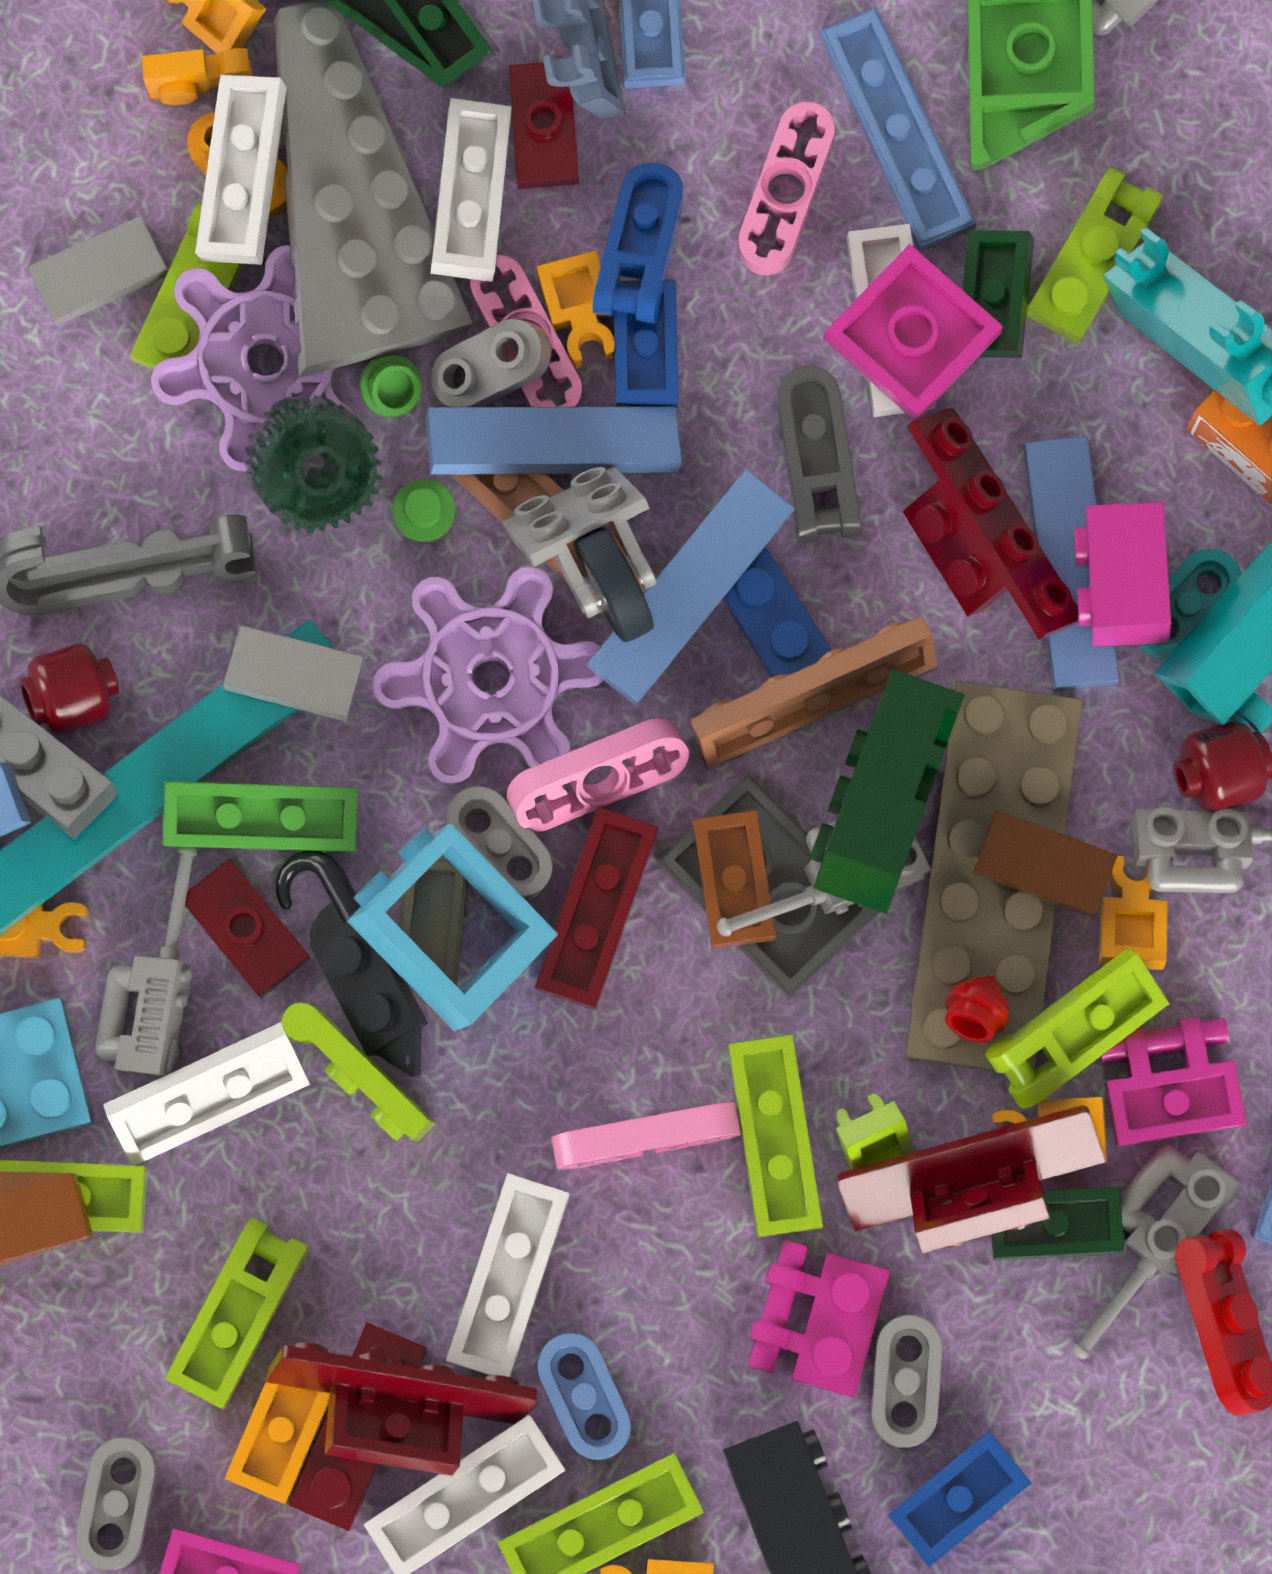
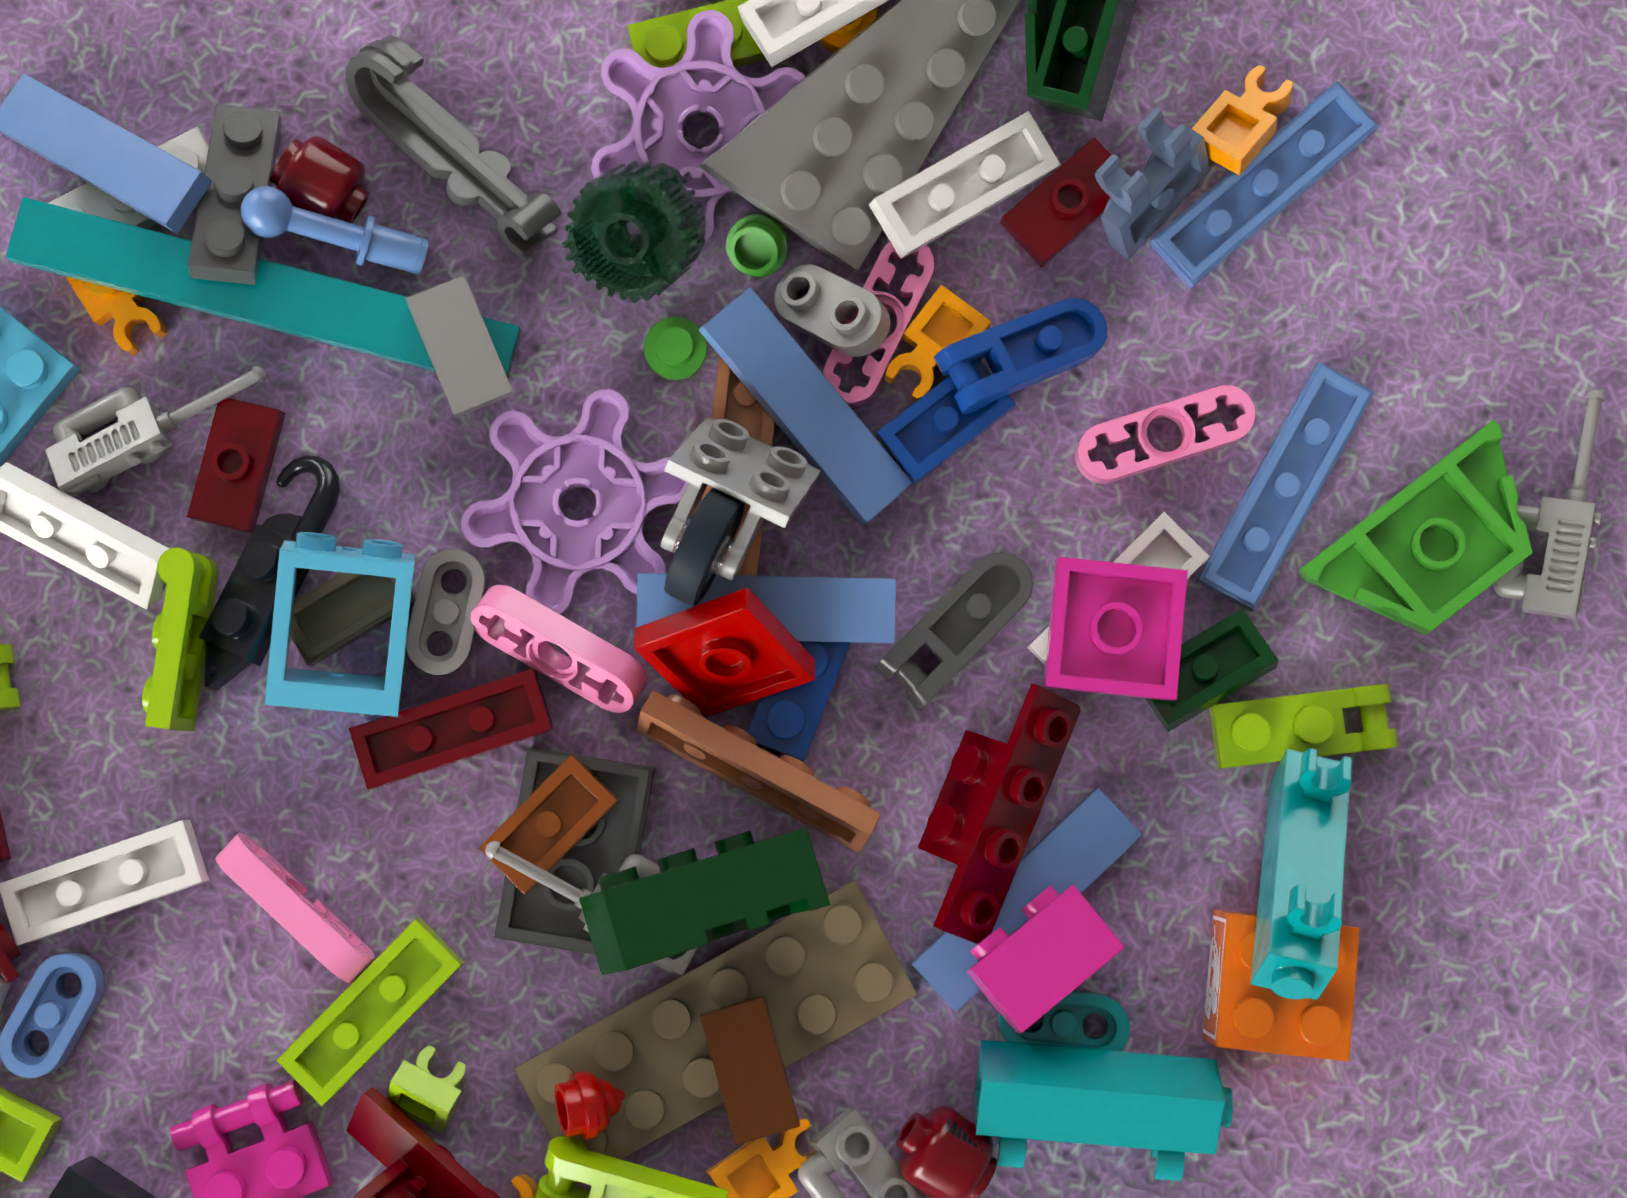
camera: 55 degrees right, 5 degrees up
(72, 737) = (270, 213): none -> medium blue pin
(259, 816) = (324, 407): bright green plate -> none
(705, 638) = (725, 652): none -> red plate

